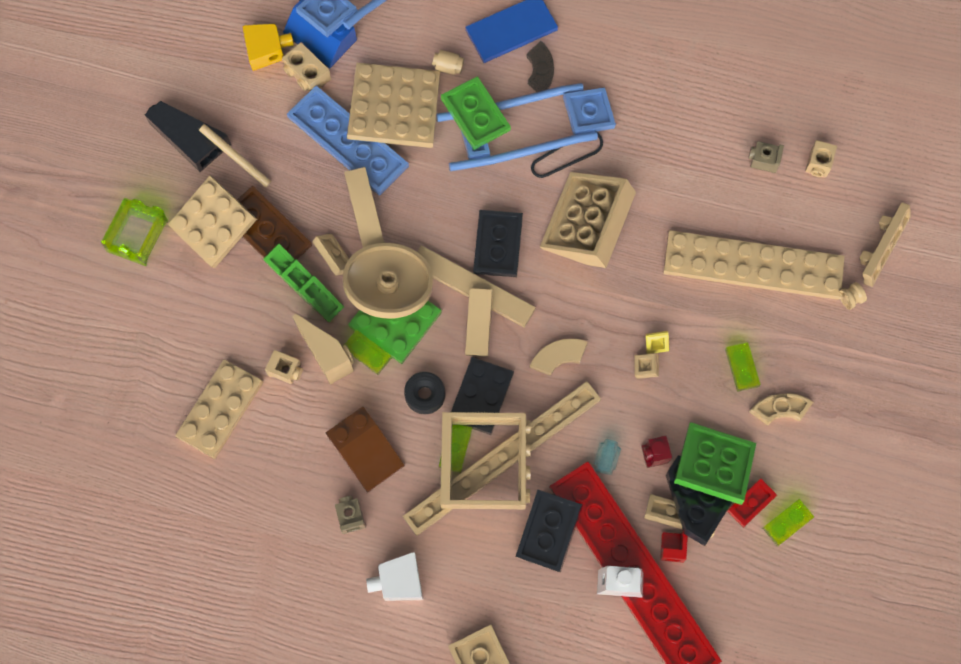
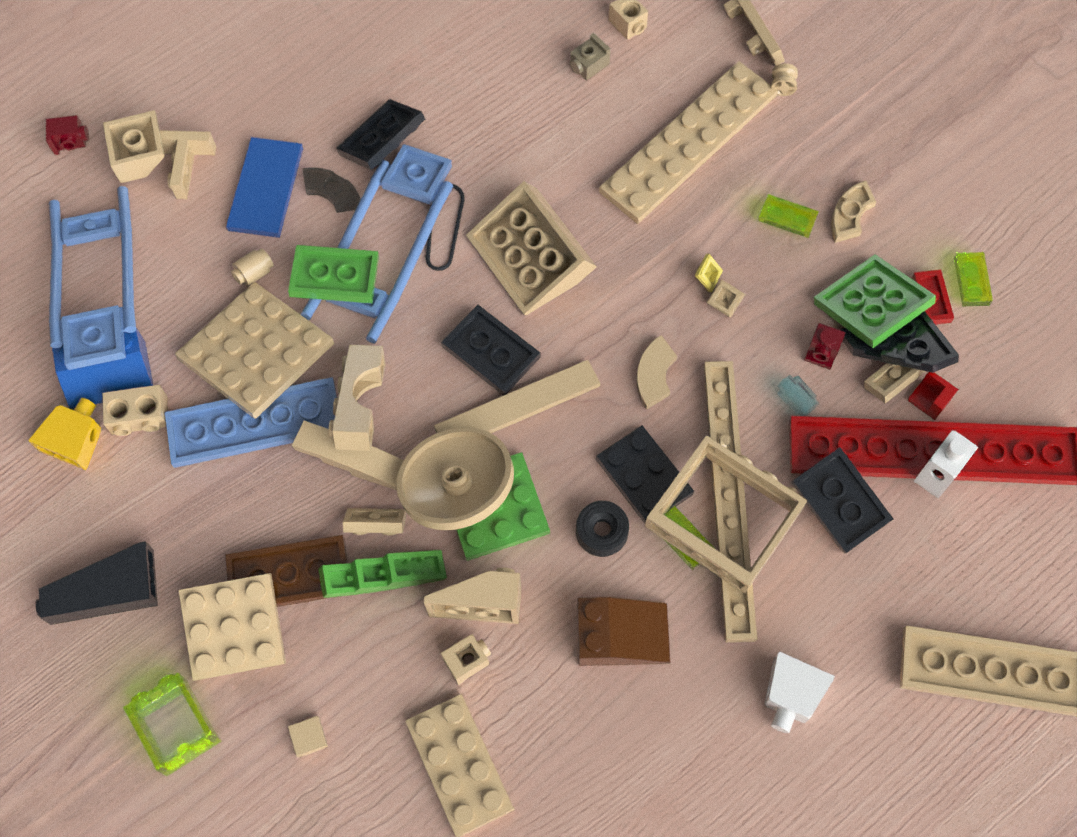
camera: 55 degrees left, 5 degrees down
(179, 311) = (307, 736): none -> tan tile
(235, 155) = (174, 549): tan bar -> none
(353, 522) = (690, 707): dark tan brick -> none
(367, 352) = (517, 555): clear neon green plate -> none
(425, 177) = (354, 423): none -> tan arch
(478, 322) = (564, 423): tan tile -> none
(600, 68) = (380, 134): none -> black plate

